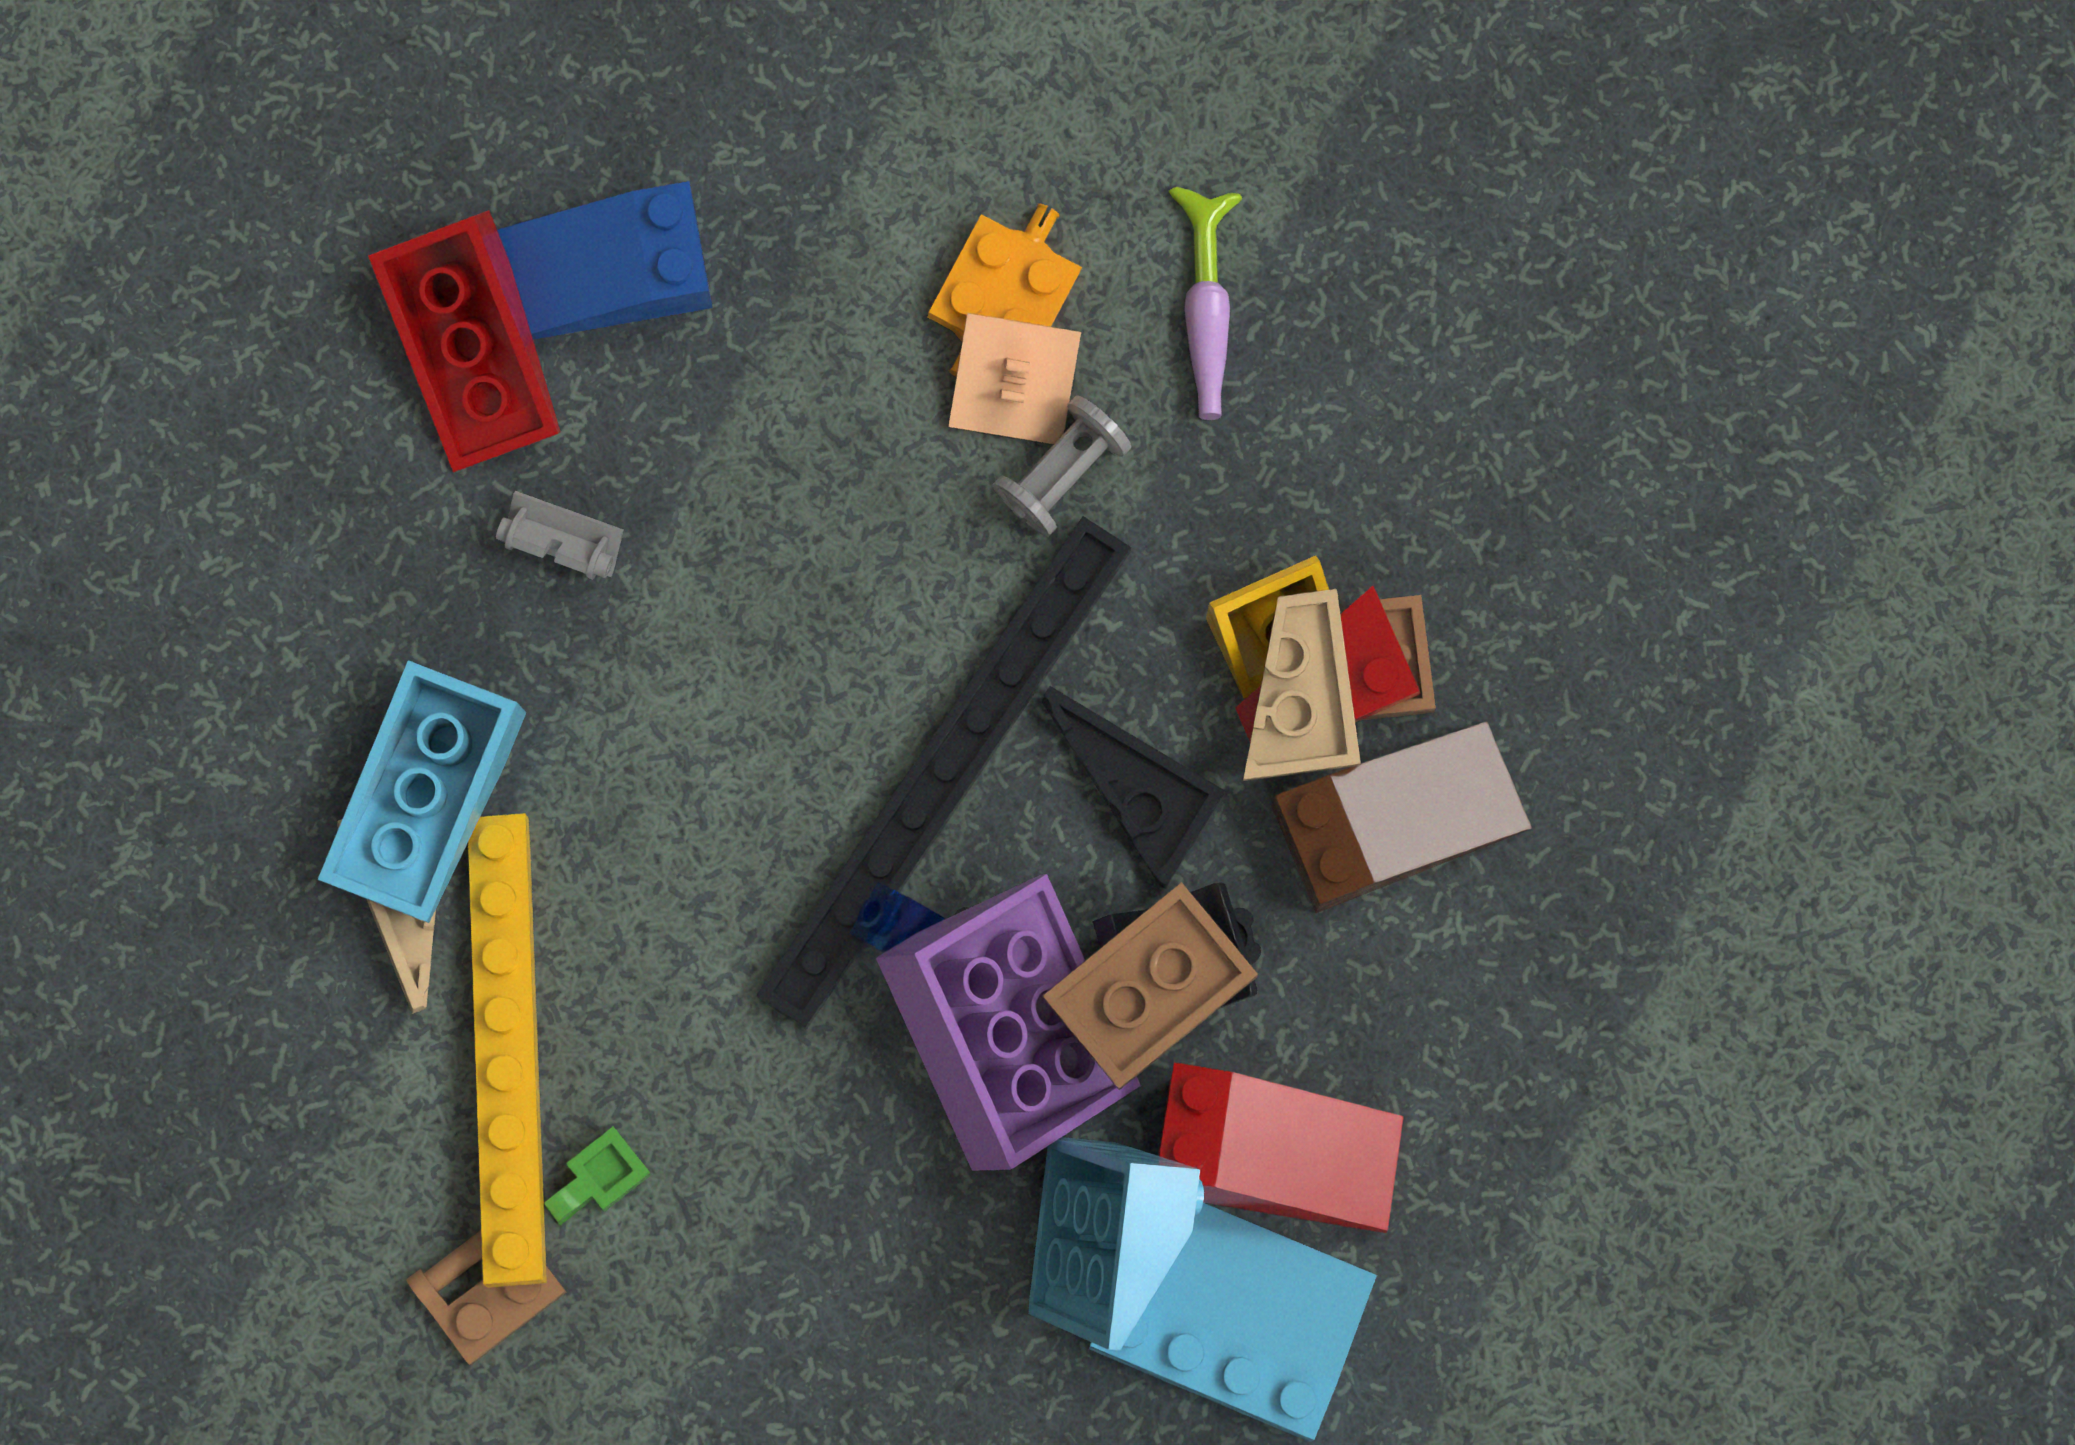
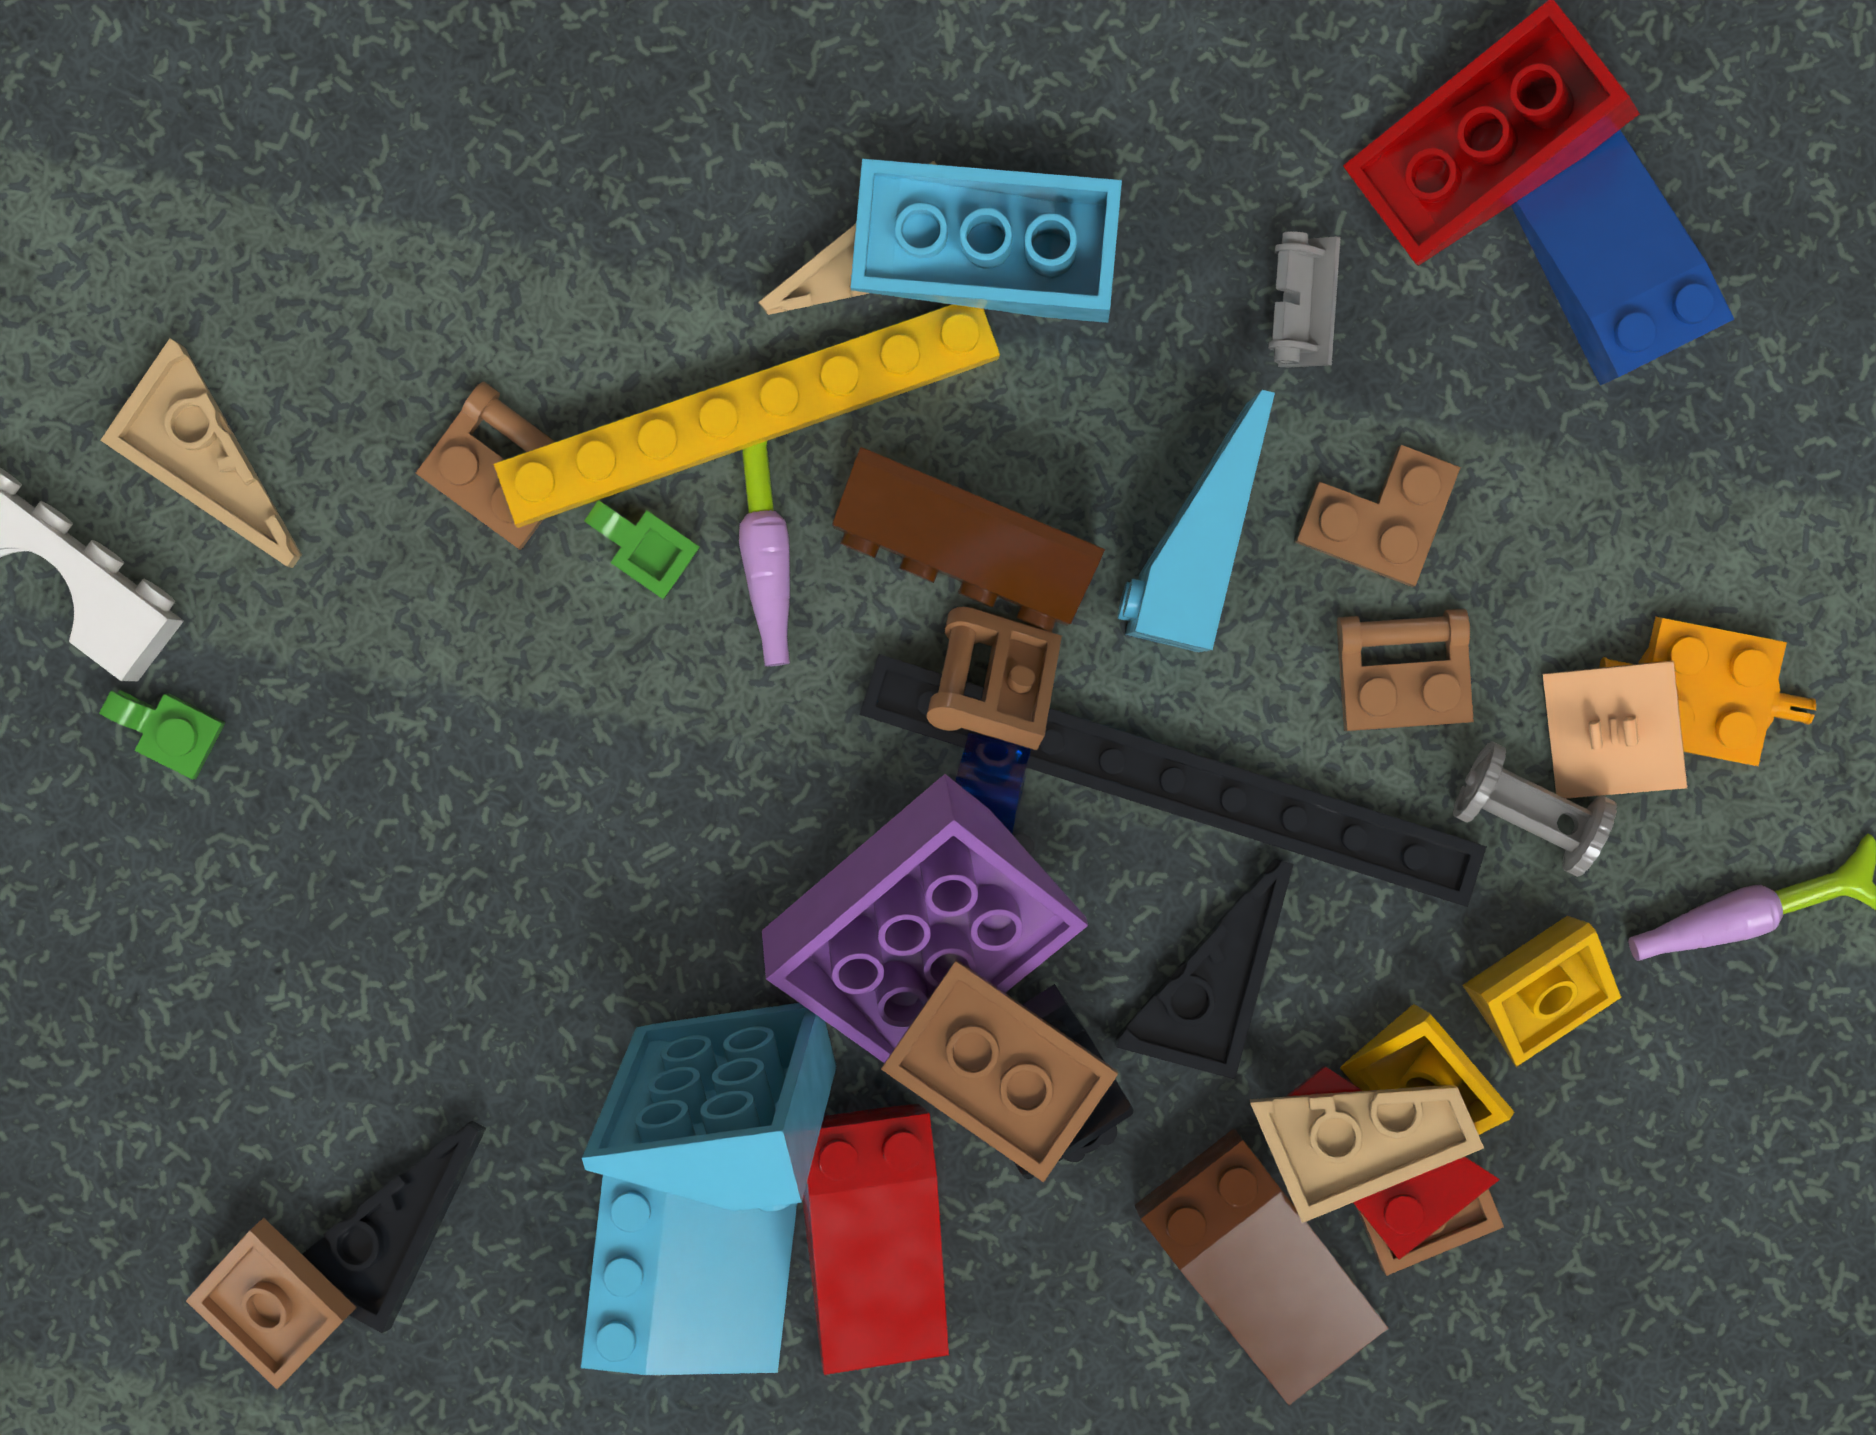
camera: 80 degrees right, 10 degrees up
(640, 1071) = (765, 557): none -> lavender piece
(678, 886) = (965, 539): none -> reddish brown slope
(768, 703) = (1189, 571): none -> medium azure slope
(785, 519) = (1388, 534): none -> medium nougat plate
(814, 878) = (1016, 680): none -> medium nougat plate
(928, 548) = (1407, 691): none -> medium nougat plate
(1224, 501) = (1545, 988): none -> yellow slope

